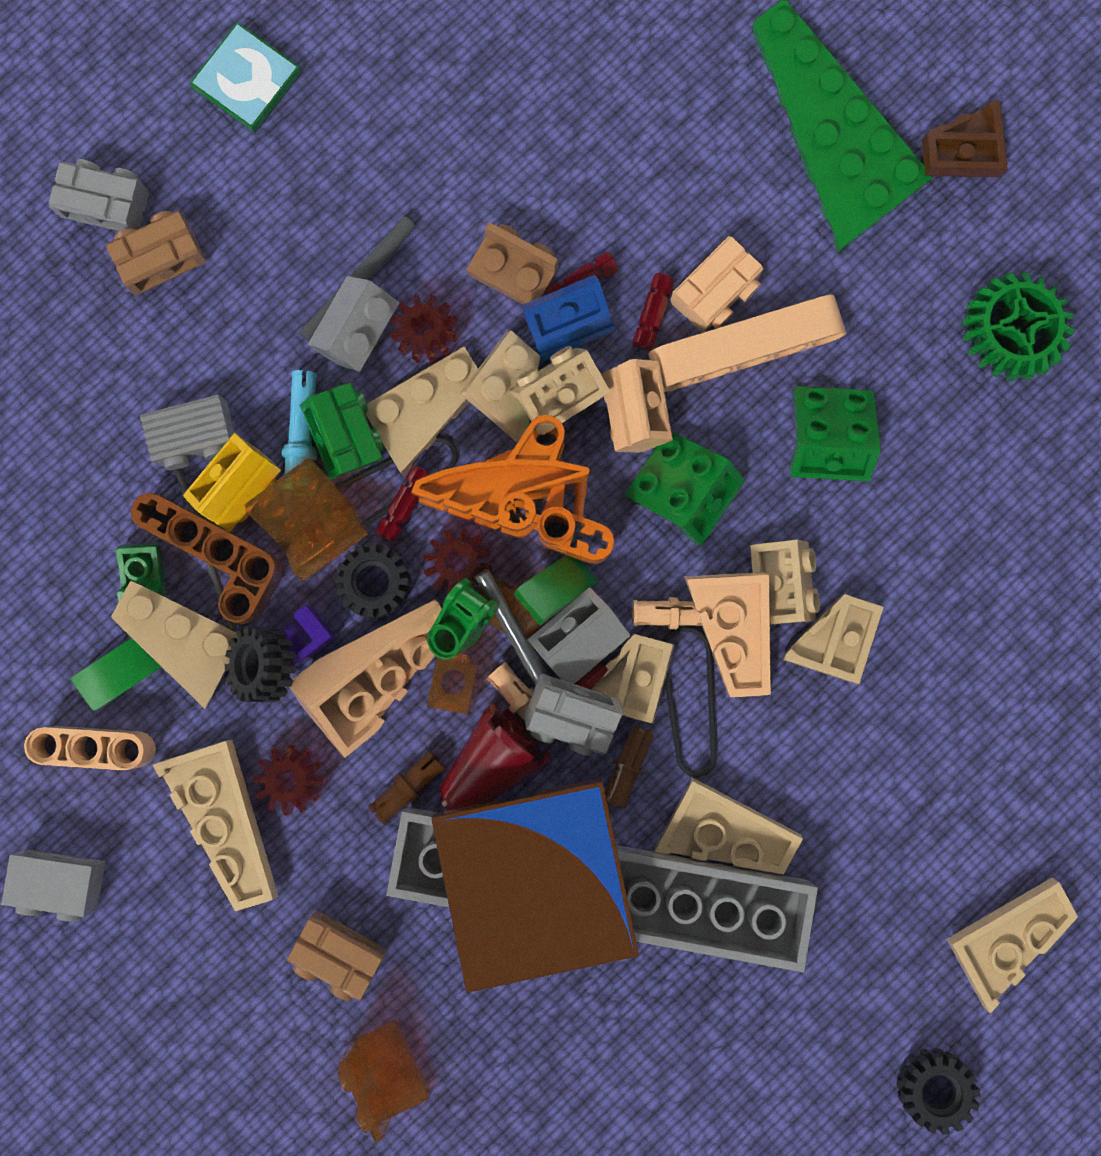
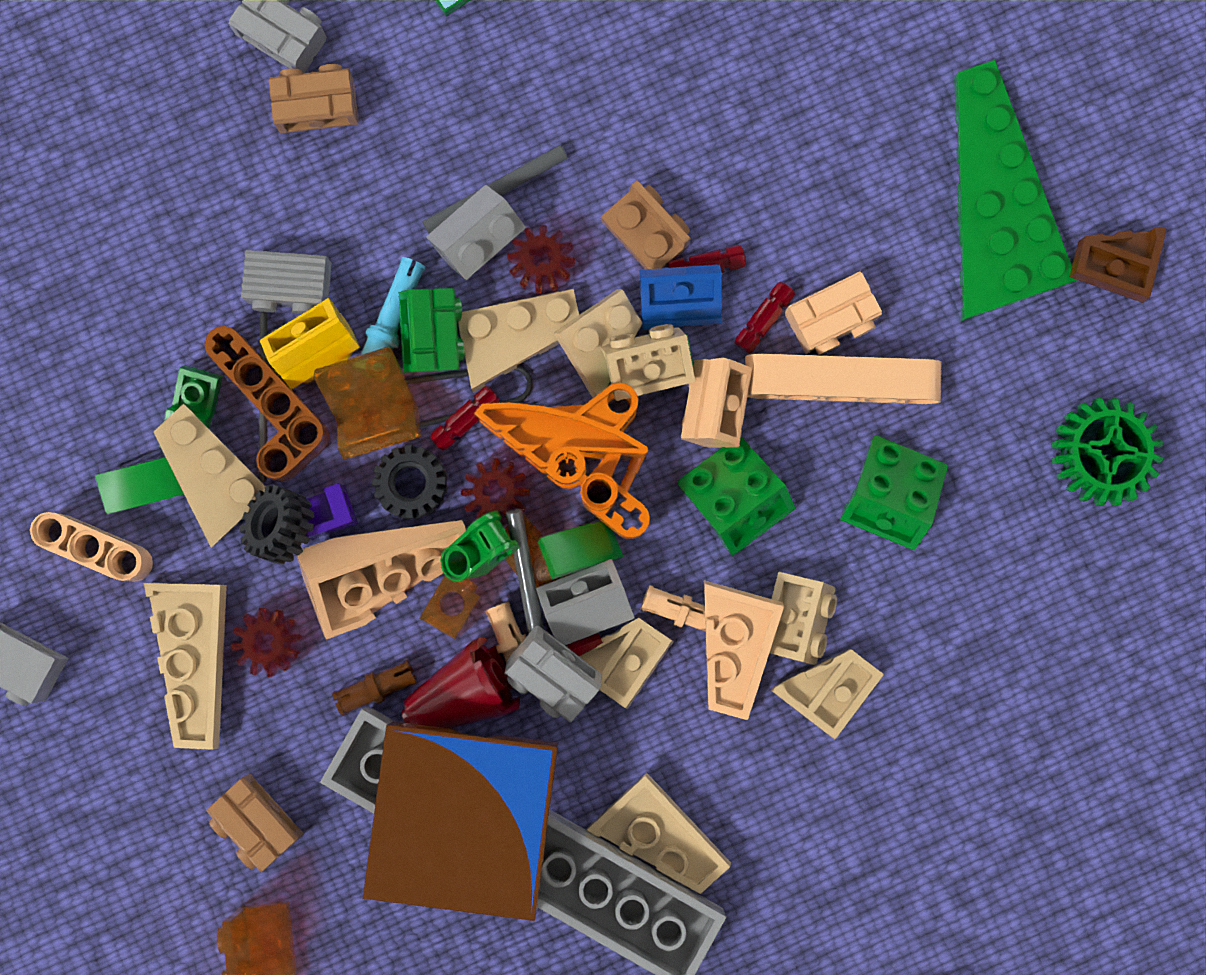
camera: 15 degrees right, 0 degrees up
(628, 766) = (589, 741): reddish brown axle -> none
(709, 768) = (646, 767): black piece -> none

